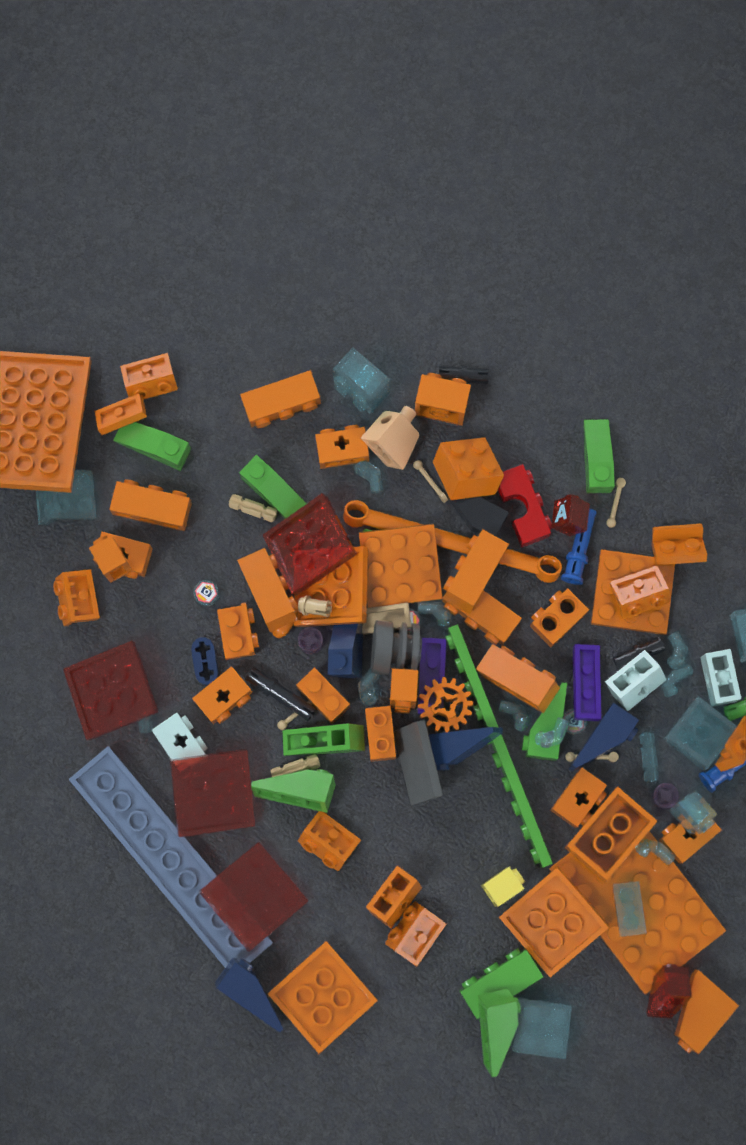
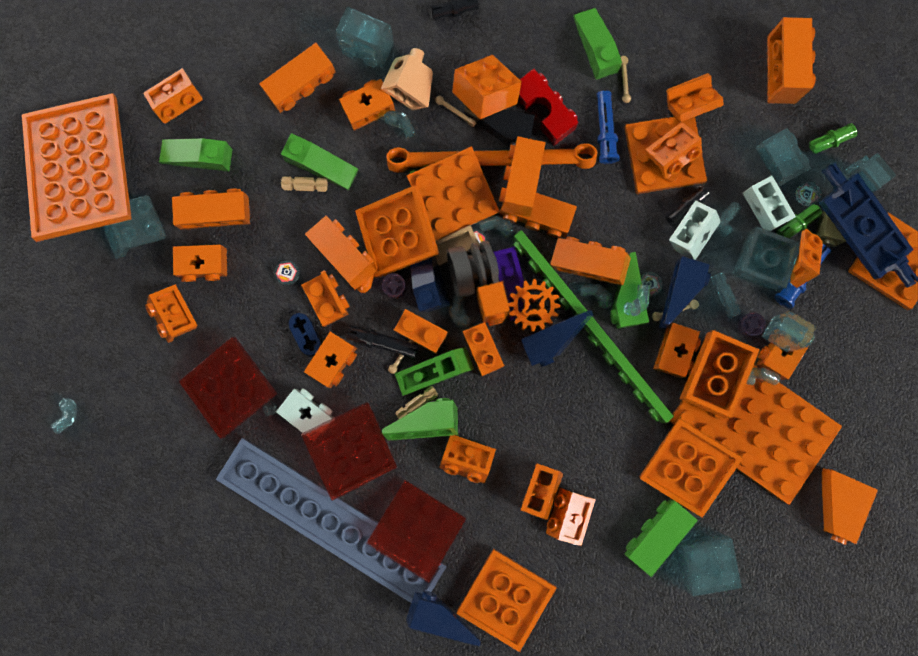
camera: 20 degrees left, 5 degrees up
(110, 558) = (185, 268): orange brick -> none
(120, 414) = (157, 135): orange plate -> none
(309, 544) = (365, 199): clear red plate -> none
(313, 606) = (381, 255): tan pin -> none
(418, 763) = (525, 365): dark grey tile -> none
(442, 398) = (443, 31): orange brick -> none
(498, 1025) = (672, 578): bright green slope -> none
(503, 886) = (637, 451): light yellow brick -> none
(562, 621) = (612, 198): orange brick -> none
(570, 515) = (590, 101): clear red brick -> none
(586, 682) = (651, 246): dark purple plate -> none
(629, 908) = (754, 435): clear light blue plate -> none
(669, 991) = (812, 496): clear red slope -> none
(680, 651) = (723, 191): clear light blue arm -> none

